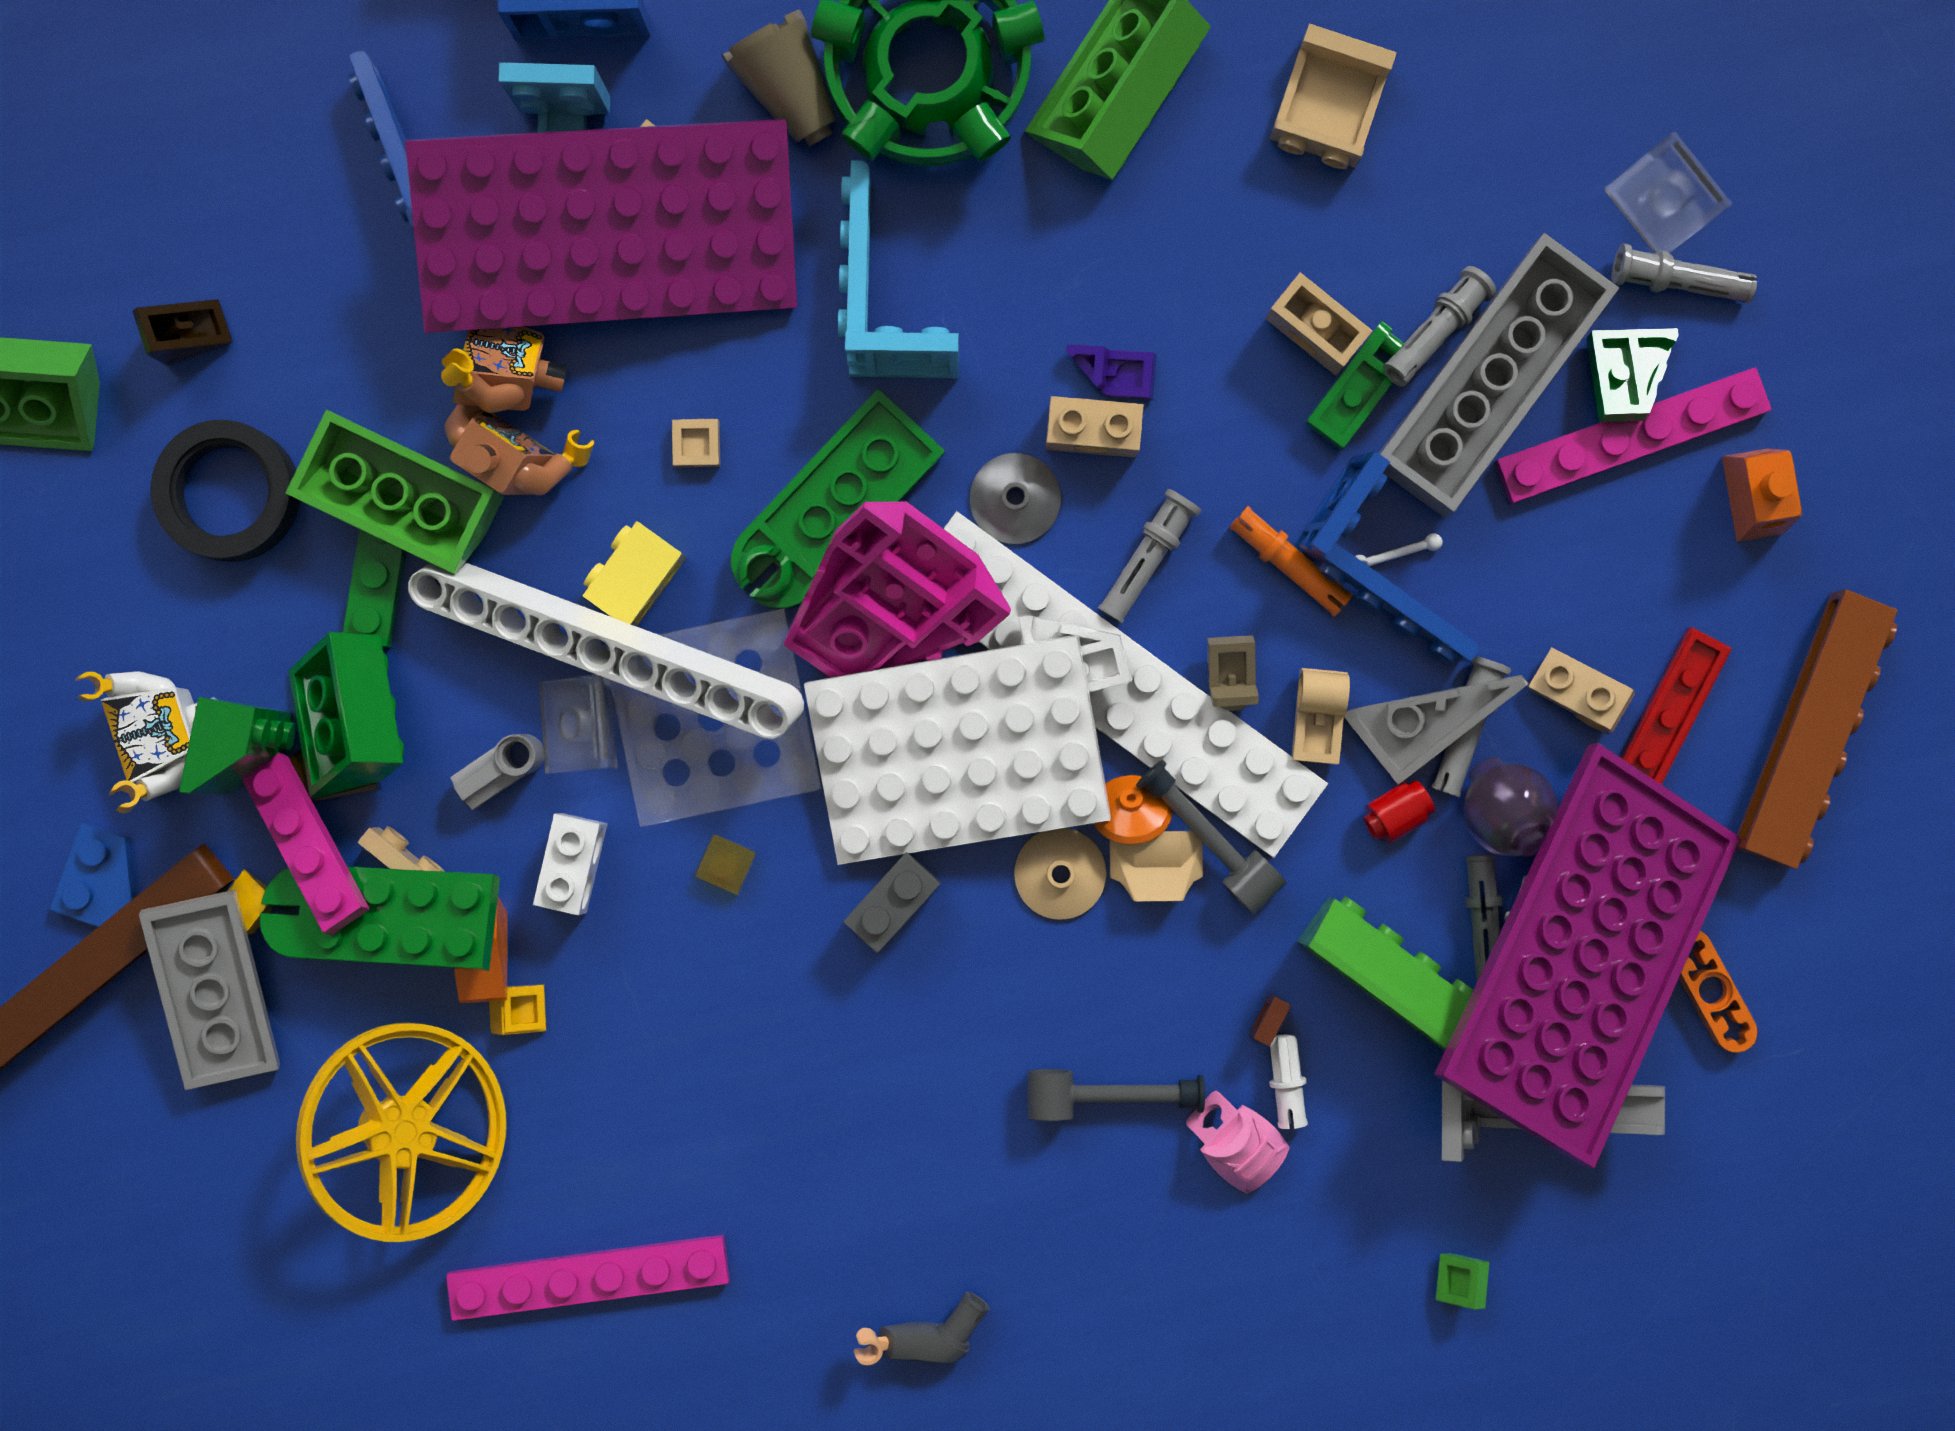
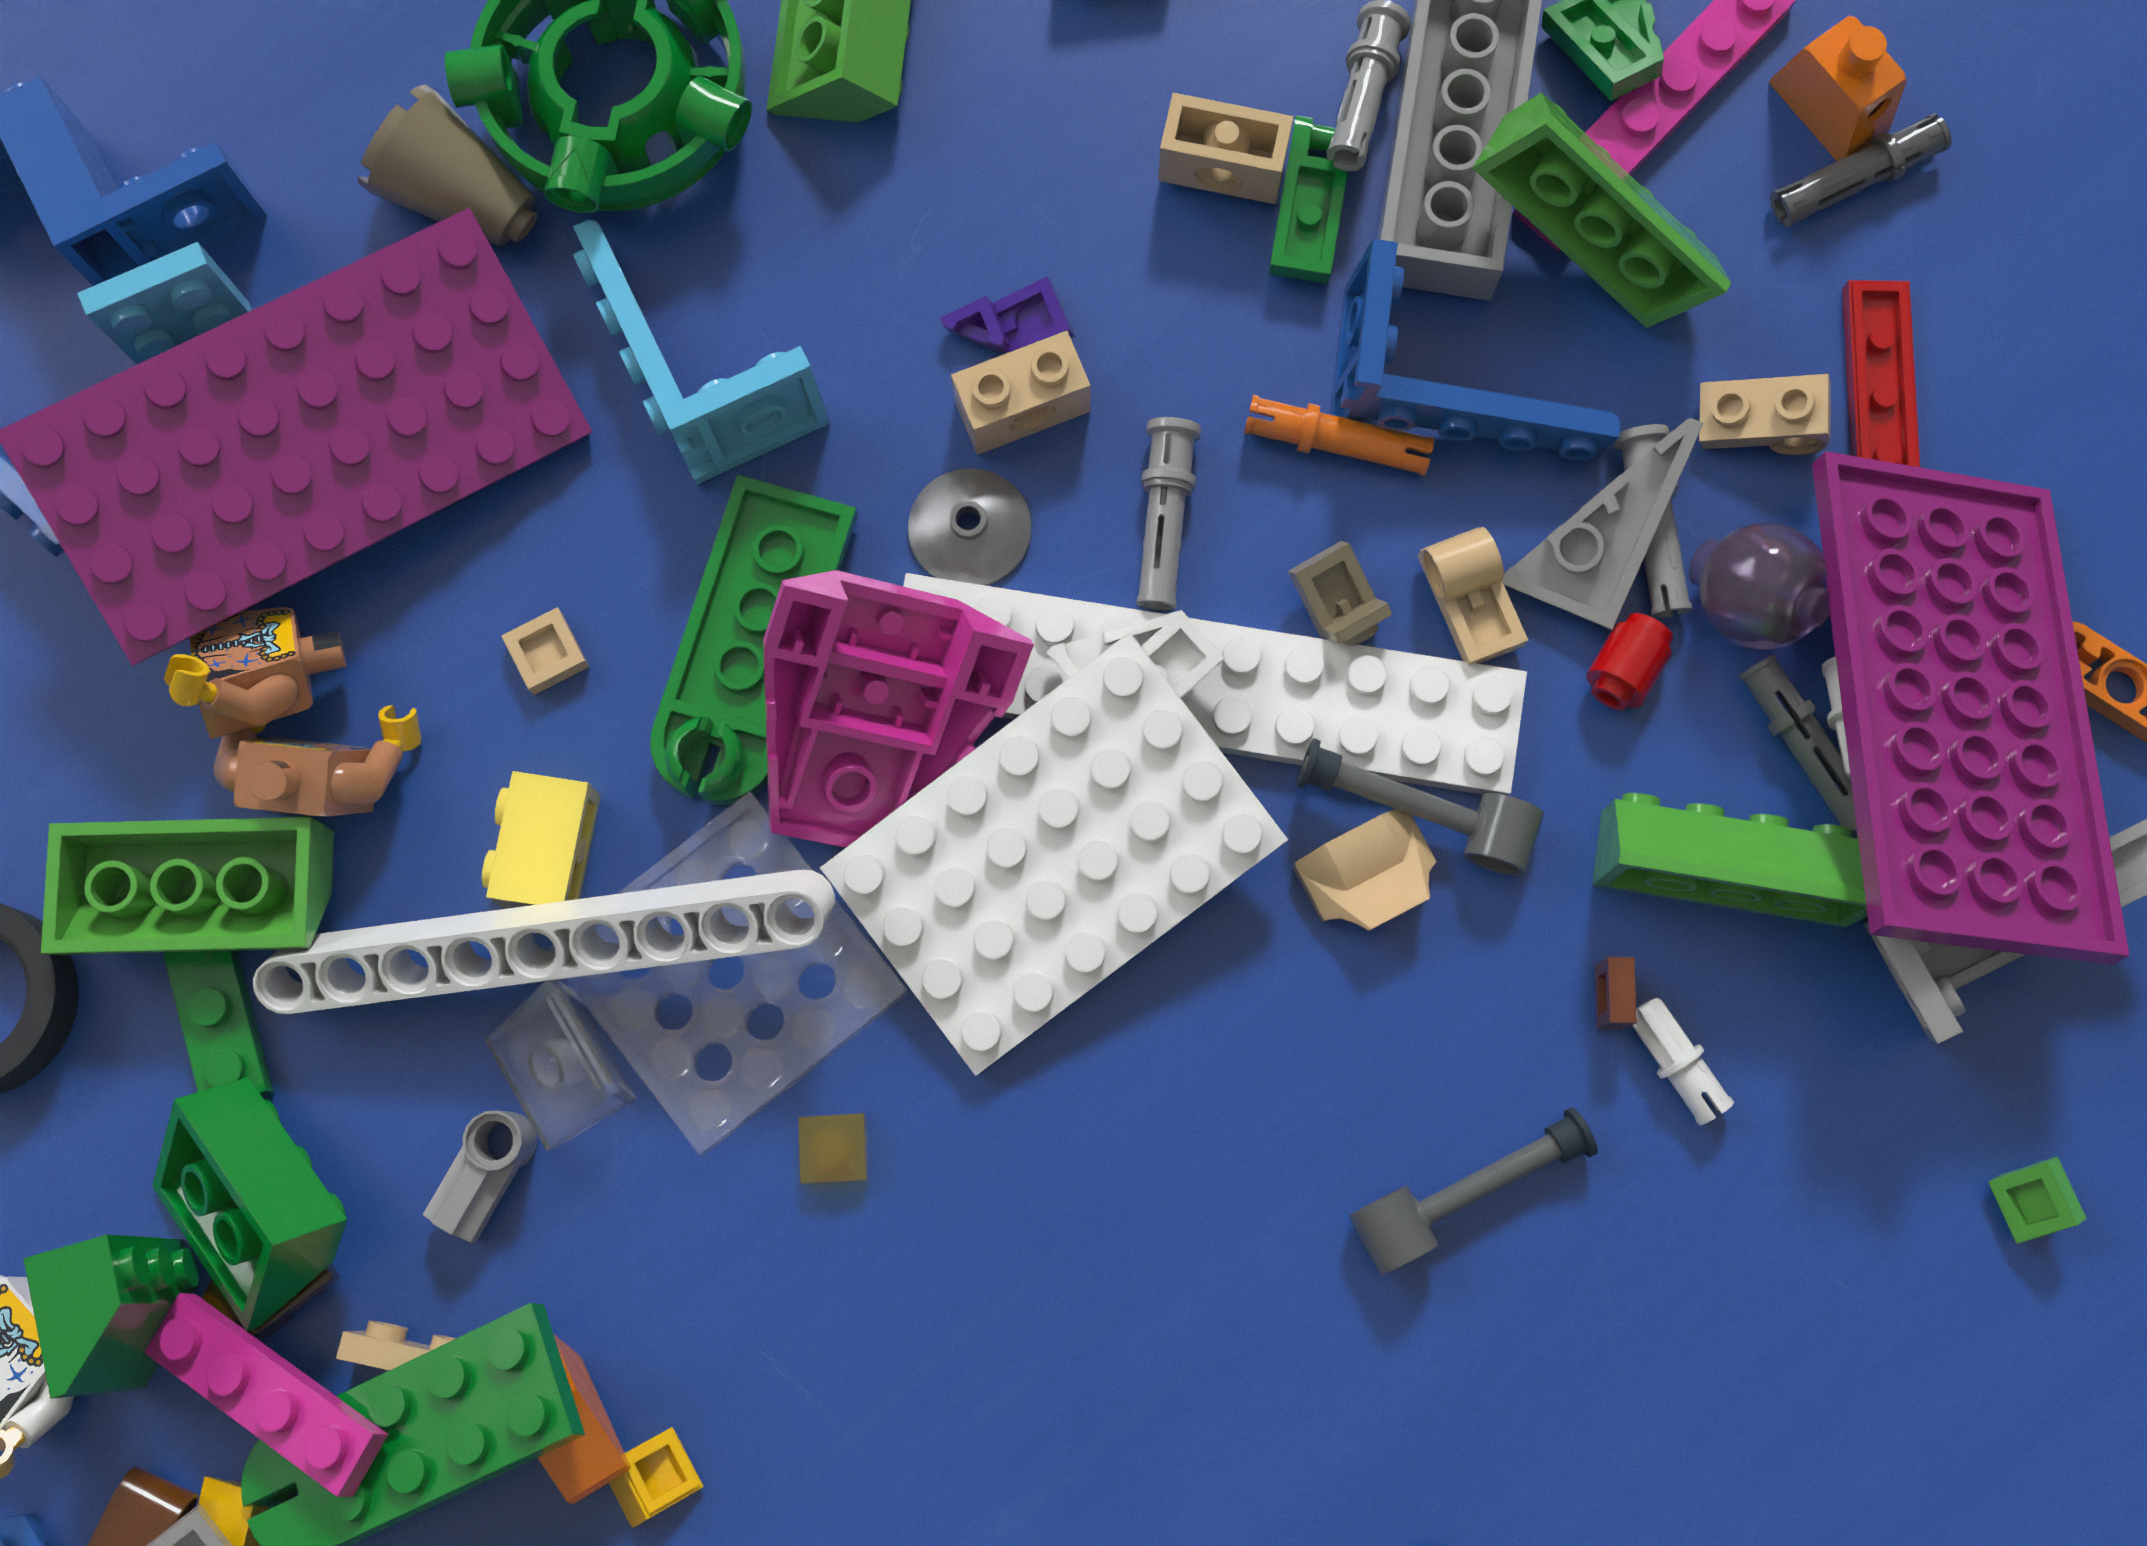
camera: 25 degrees left, 10 degrees down
(570, 864) = (630, 1246): white brick -> none
(892, 902) = (1068, 1084): dark grey brick -> none
(1035, 870) = (1254, 981): tan dish -> none
(1134, 812) = (1314, 821): orange piece -> none
(1244, 1148) = (1672, 1170): bright pink piece -> none
(1432, 542) = (1492, 335): white hinge -> none
(1542, 504) = (1598, 214): none -> bright green slope
(1755, 554) = (1881, 160): none -> dark grey pin
(1816, 729) = (2062, 324): dark orange brick -> none

